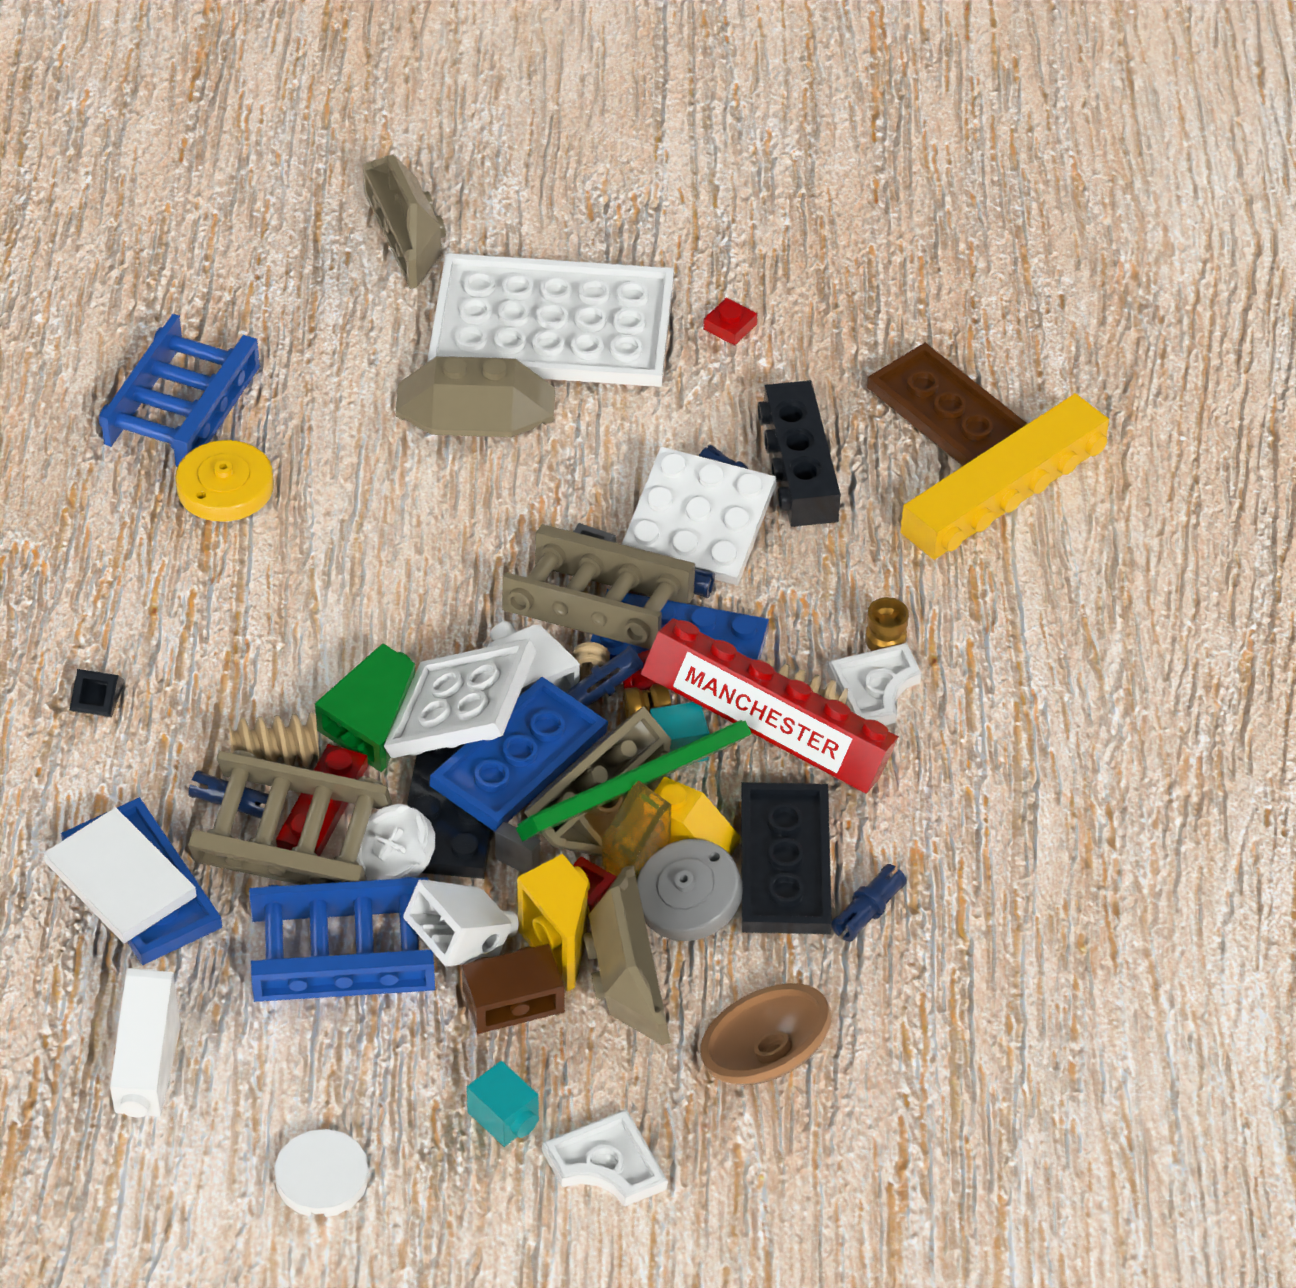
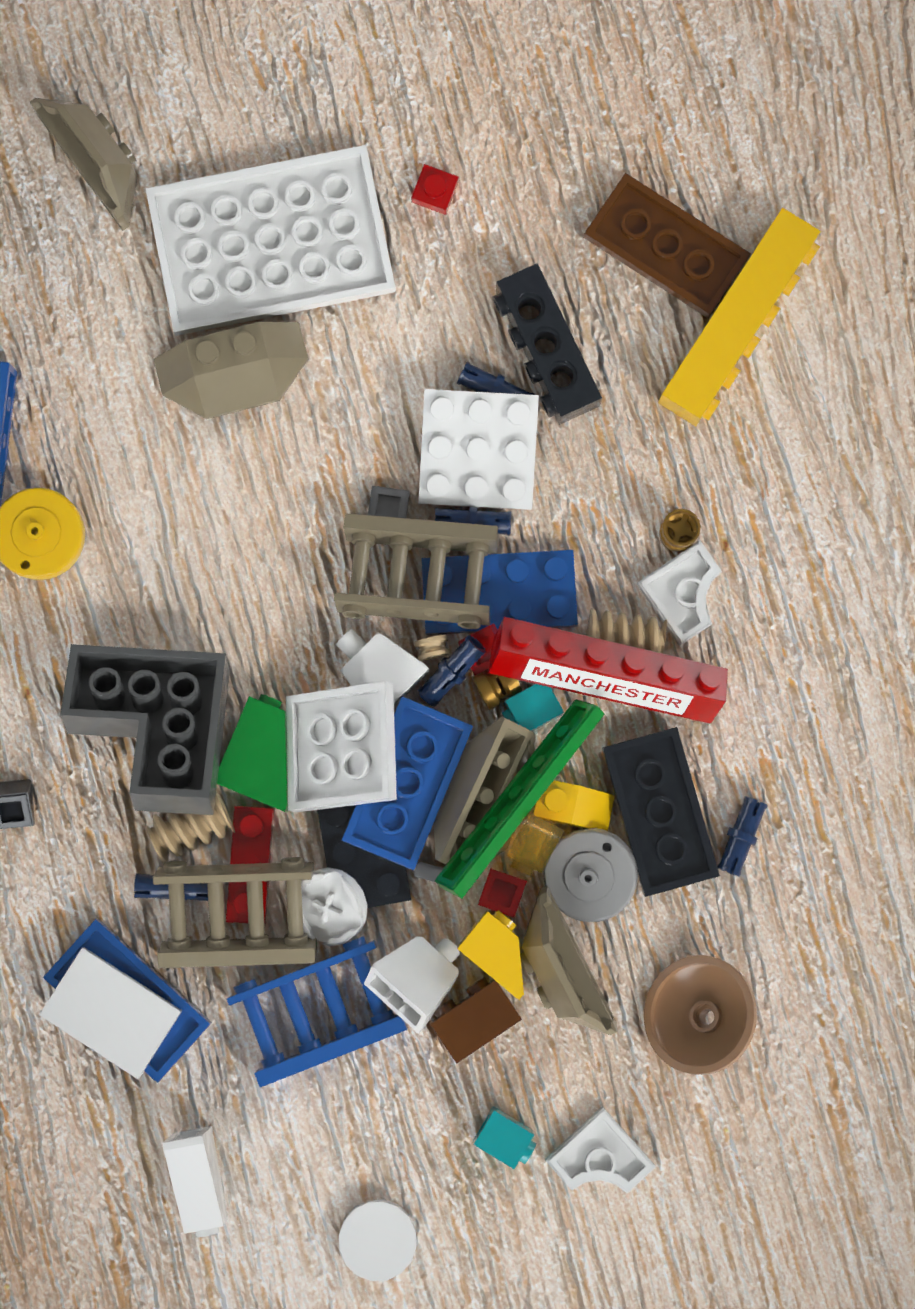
camera: 15 degrees left, 35 degrees up
(282, 632) = (164, 701): none -> dark grey brick

